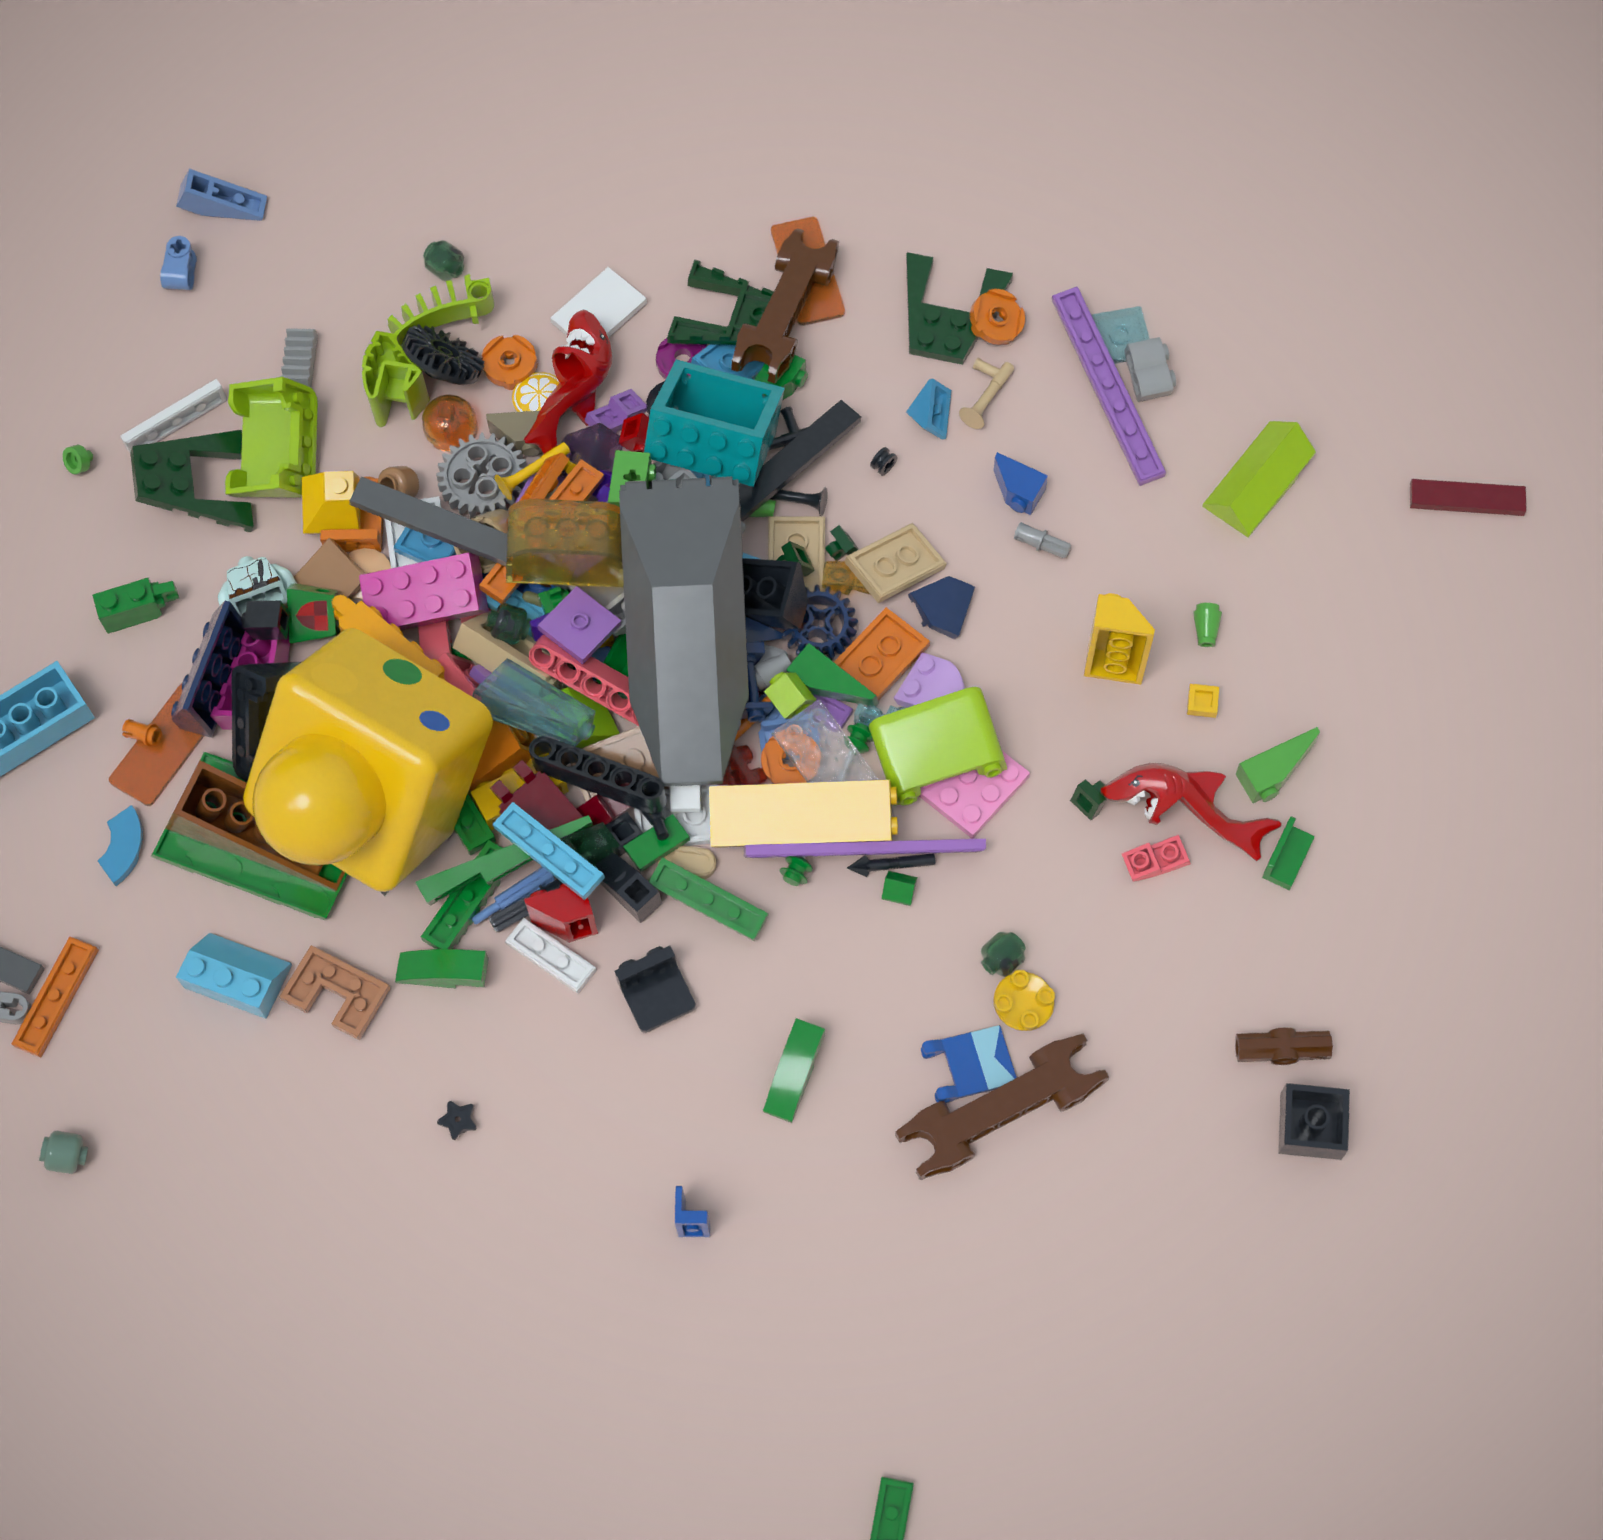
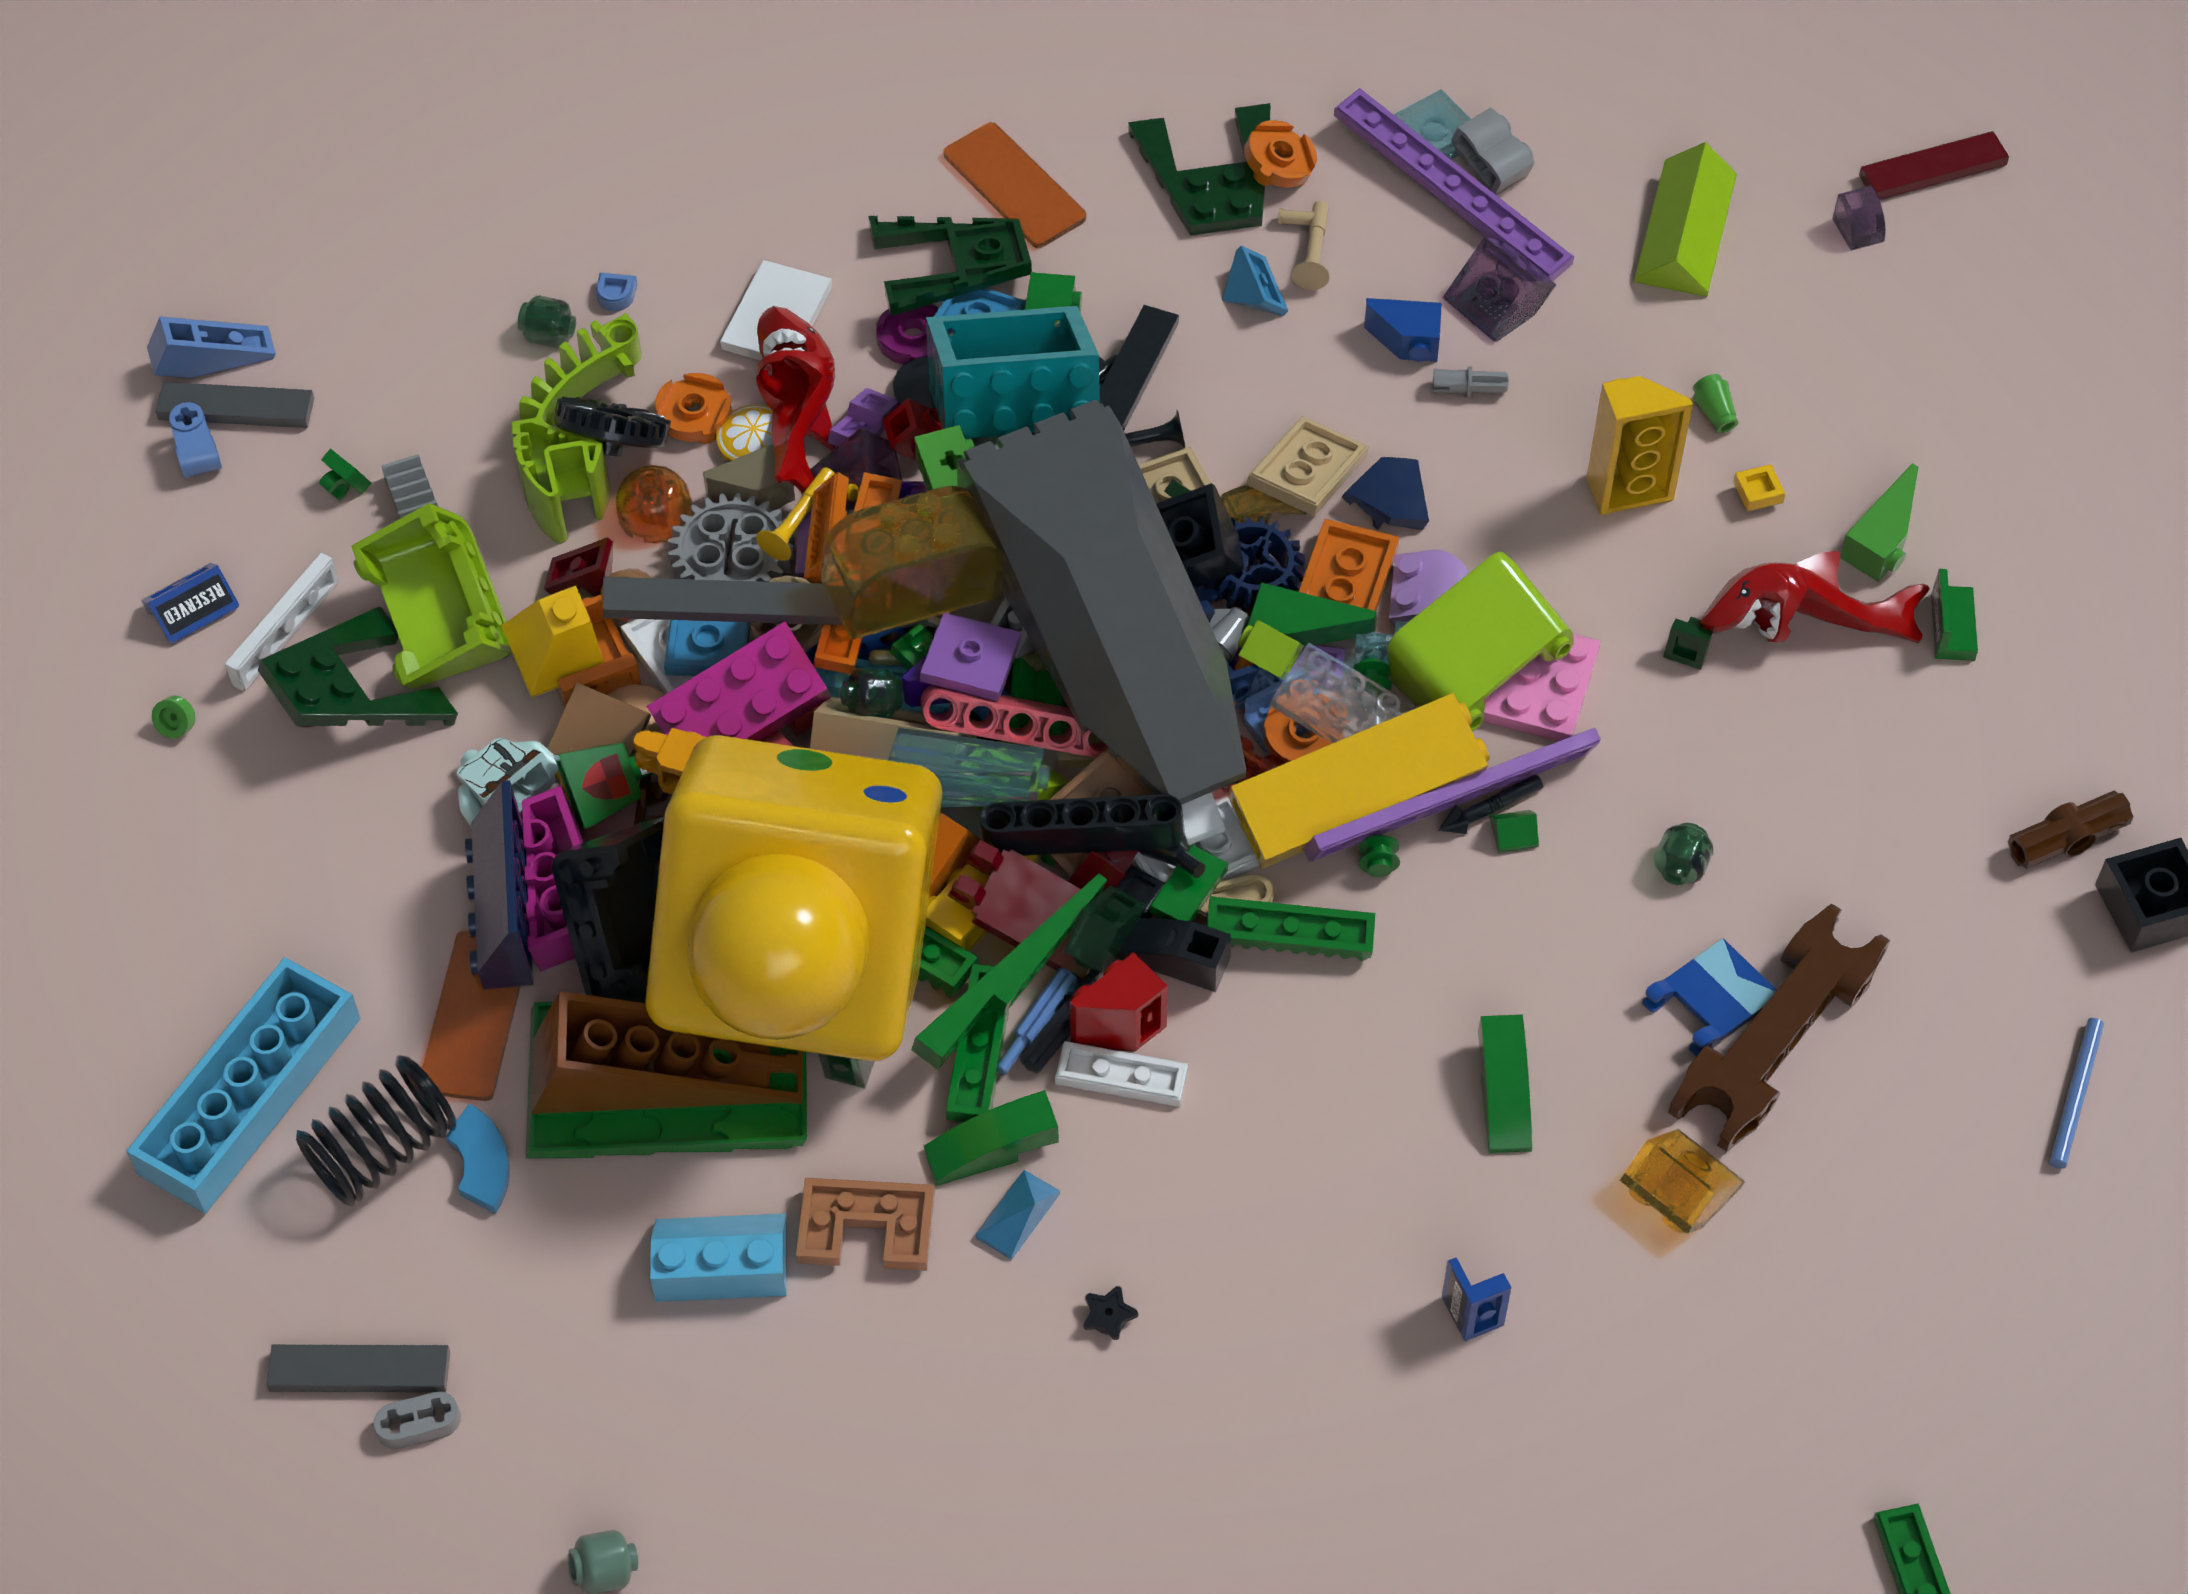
camera: 25 degrees left, 10 degrees down
(55, 997) = (484, 1380): orange tile -> none
(95, 792) = (425, 1093): none -> black piece
(125, 380) = (191, 602): none -> panel
(133, 603) = (344, 859): green hinge -> none
(148, 734) = (439, 1009): orange pin -> none
(221, 246) = (240, 404): none -> dark grey tile
(260, 325) = (341, 476): none -> green tile
(266, 620) = (550, 801): black brick -> none
(377, 454) = (581, 568): none -> dark red slope
(436, 1025) = (1017, 1214): none -> dark azure slope
(502, 253) = (615, 291): none -> medium blue tile
(548, 851) = (1074, 930): medium azure plate -> none
(654, 989) = (1278, 1058): black bracket -> none
(771, 339) = (1022, 264): reddish brown piece -> none
(842, 545) = (1230, 467): dark green tile -> none
(876, 1188) = (1680, 1181): none -> clear yellow slope
(883, 461) = (1229, 359): black bush -> none
(1023, 1001) = (1737, 898): yellow dish -> none
(1098, 477) = (1498, 289): none -> clear purple slope
(1156, 859) = (1804, 681): coral slope -> none
(1183, 1239) = (2076, 1093): none -> medium blue bar
(1388, 519) = (1860, 217): none -> clear purple brick

